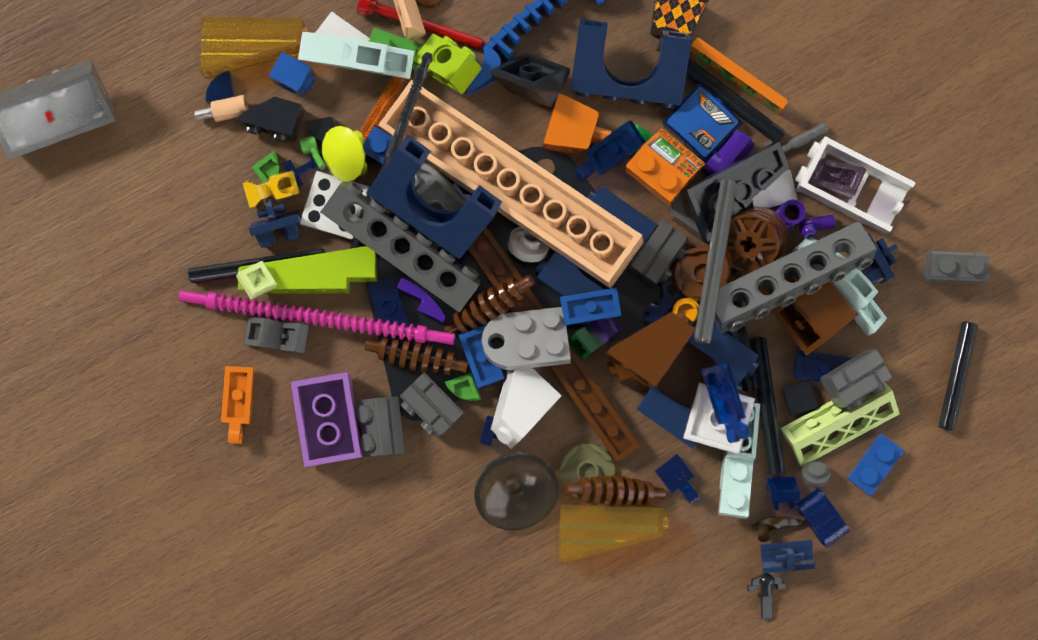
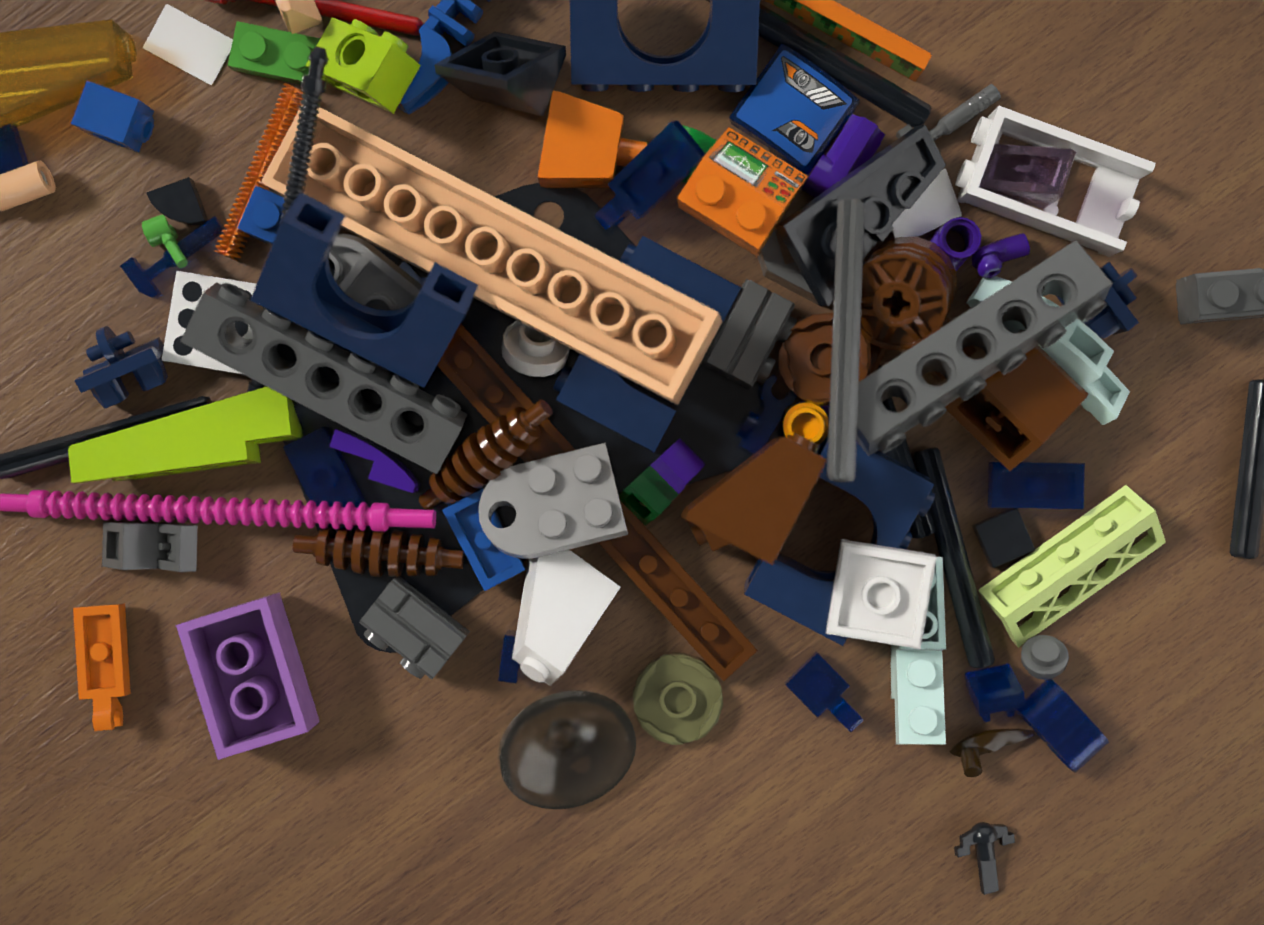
camera: 10 degrees left, 5 degrees up
(256, 280) = (96, 465): yellowish green tile -> none
(267, 167) = (100, 279): bright green tile -> none
(274, 117) = (97, 191): black slope -> none
(279, 186) = (114, 304): yellow leg -> none
(344, 153) = (214, 236): neon yellow dish -> none
(356, 55) = (208, 69): light aqua slope -> none
(380, 426) = (335, 675): dark grey brick -> none
(464, 387) = (463, 591): bright green tile -> none
(590, 306) = (648, 438): blue plate -> none
(603, 528) = (719, 786): clear yellow slope -> none
(614, 490) = (725, 728): reddish brown piece -> none
(726, 401) = (890, 568): clear blue plate -> none
(787, 556) = (1014, 796): dark blue hips -> none
(856, 379) = (1095, 499): dark grey brick -> none
(875, 464) = (1135, 628): blue plate -> none

